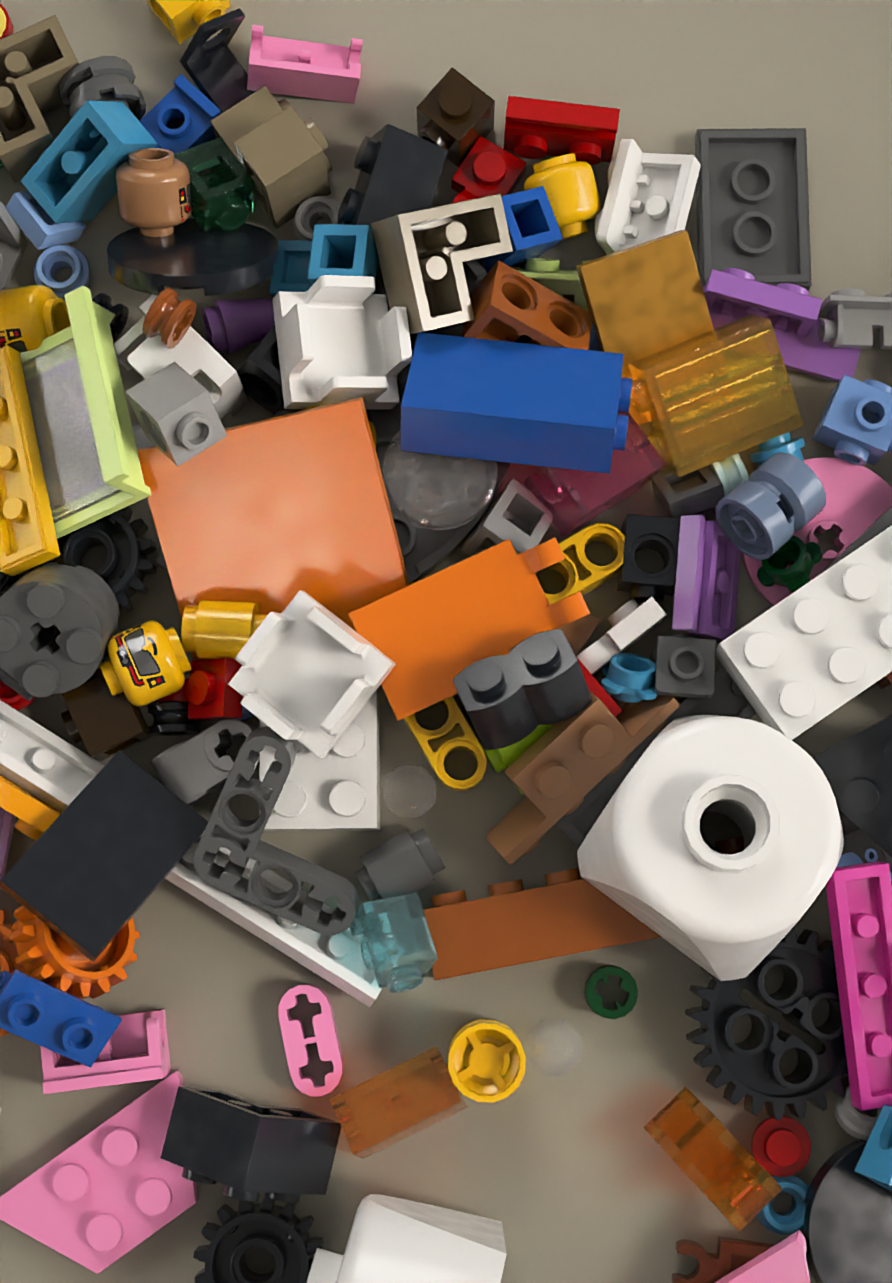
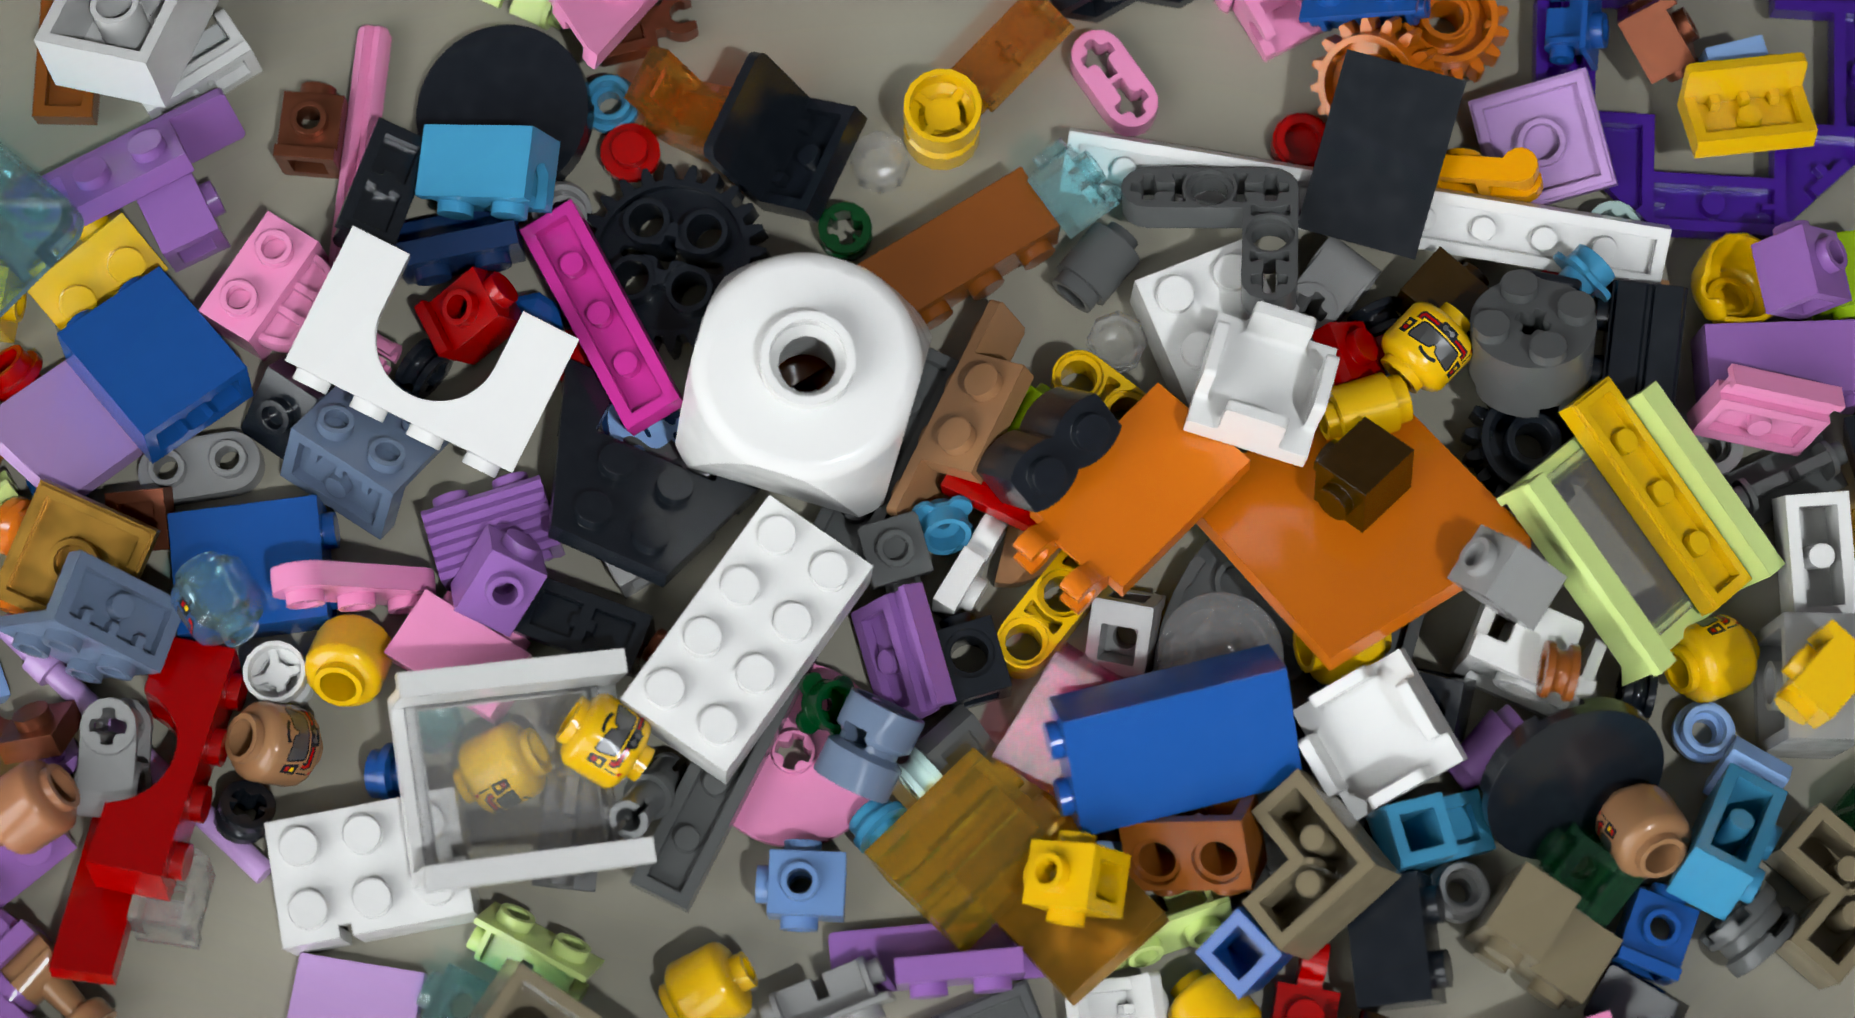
camera: 155 degrees right, 5 degrees down
(167, 915) = (1297, 139): none -> red tile
(257, 563) = (1362, 474): none -> dark brown brick
(642, 1096) = (782, 142): none -> black bracket
(646, 315) = (1075, 879): none -> yellow brick

